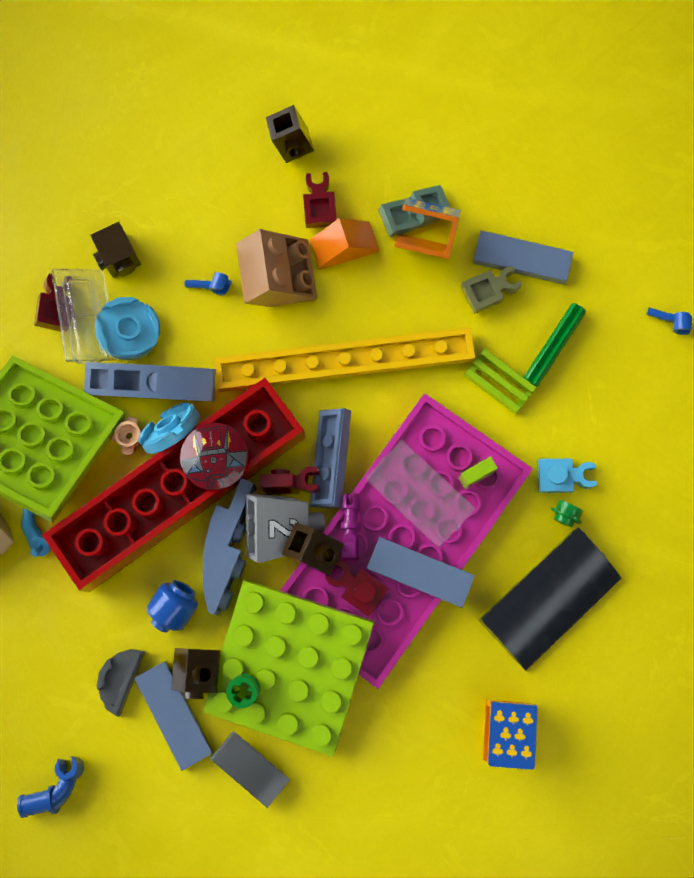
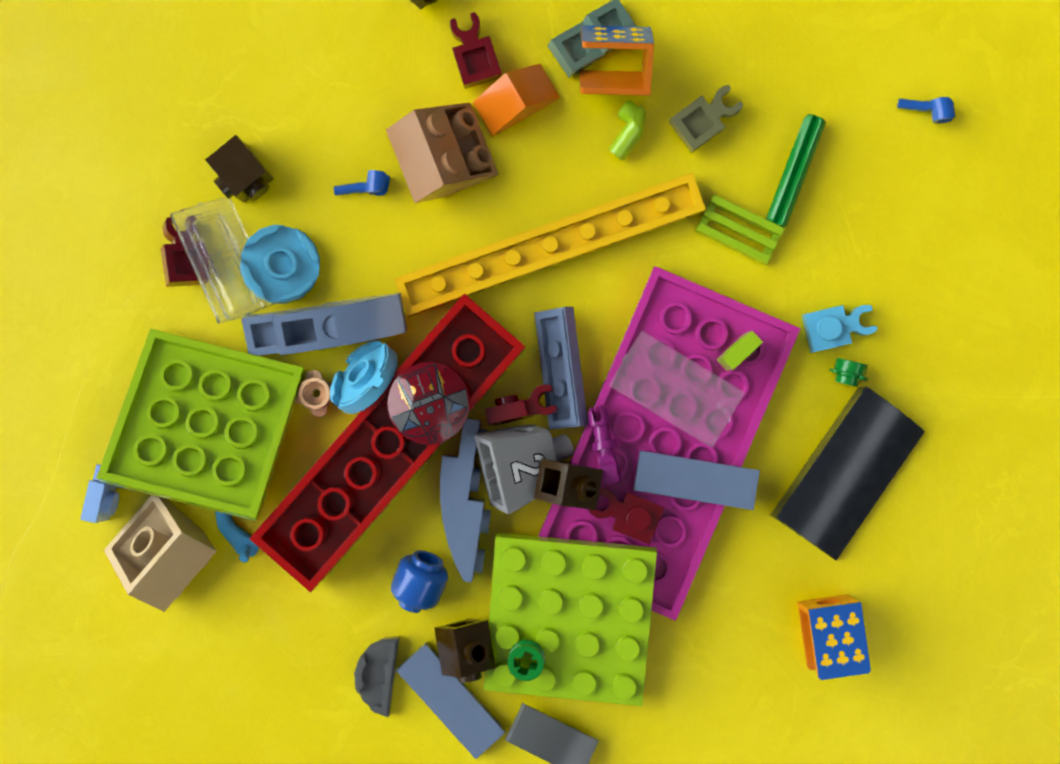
camera: 20 degrees left, 10 degrees up
(429, 287) = (632, 132): none -> lime arm
(525, 256) = (738, 67): sand blue tile -> none

